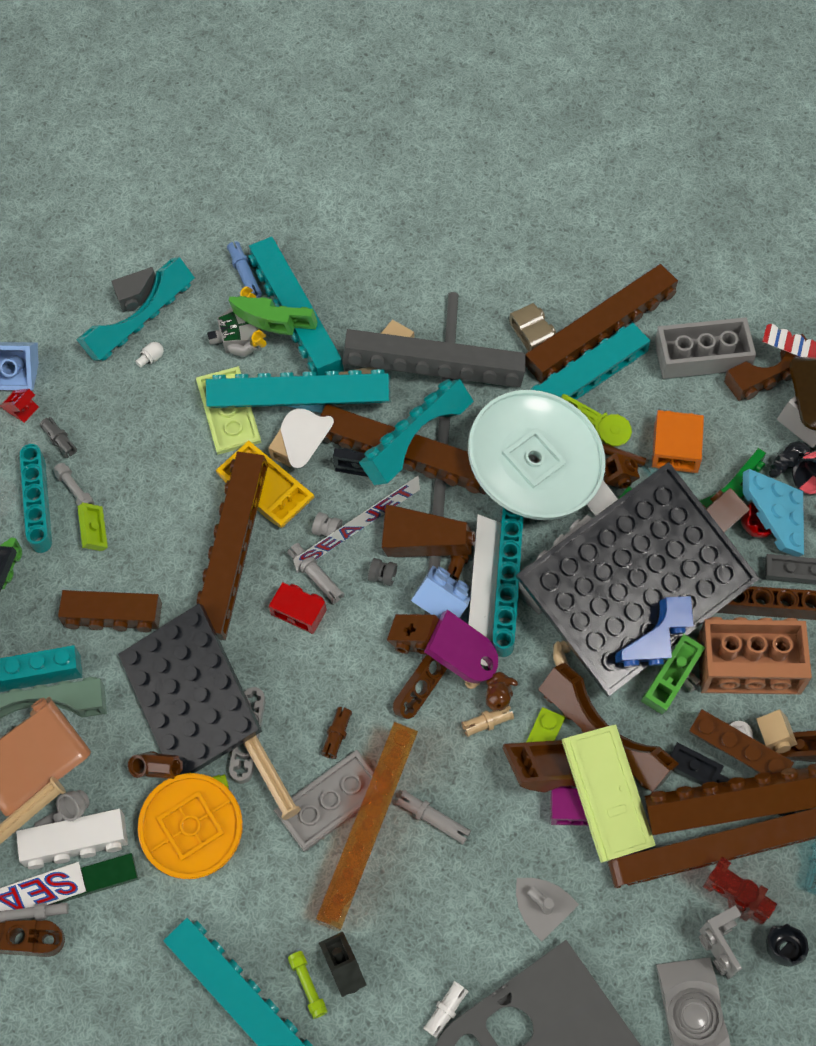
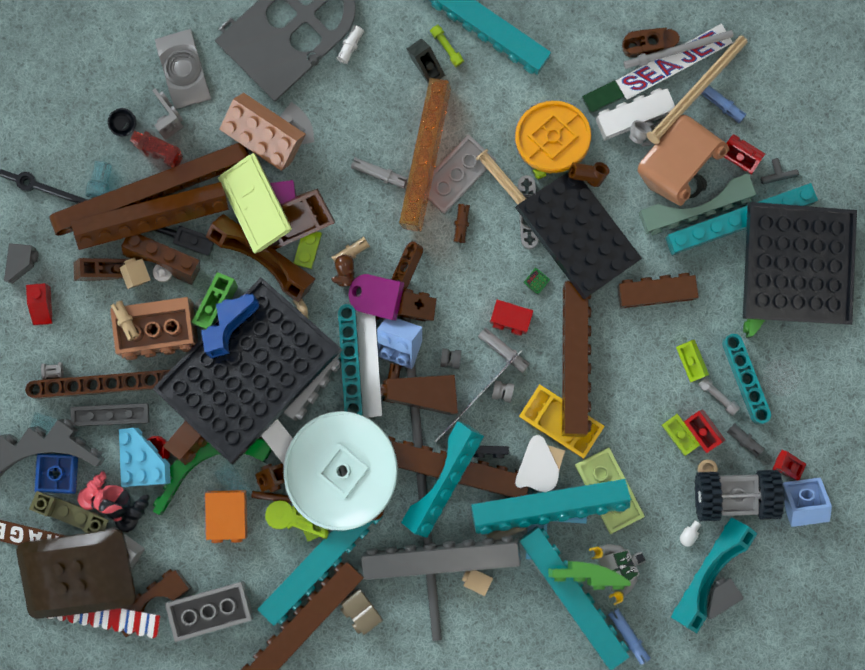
camera: 170 degrees right, 20 degrees up
(59, 373) = (739, 495): none -> black plate
(101, 447) = (704, 430): none -> red brick
(111, 415) = (707, 466): none -> tan tile
(130, 452) = (680, 434): none -> lime plate
(256, 648) = (536, 281): none -> tile
(587, 892) = (262, 131): none -> nougat brick
(792, 655) = (125, 320): none -> tan pin

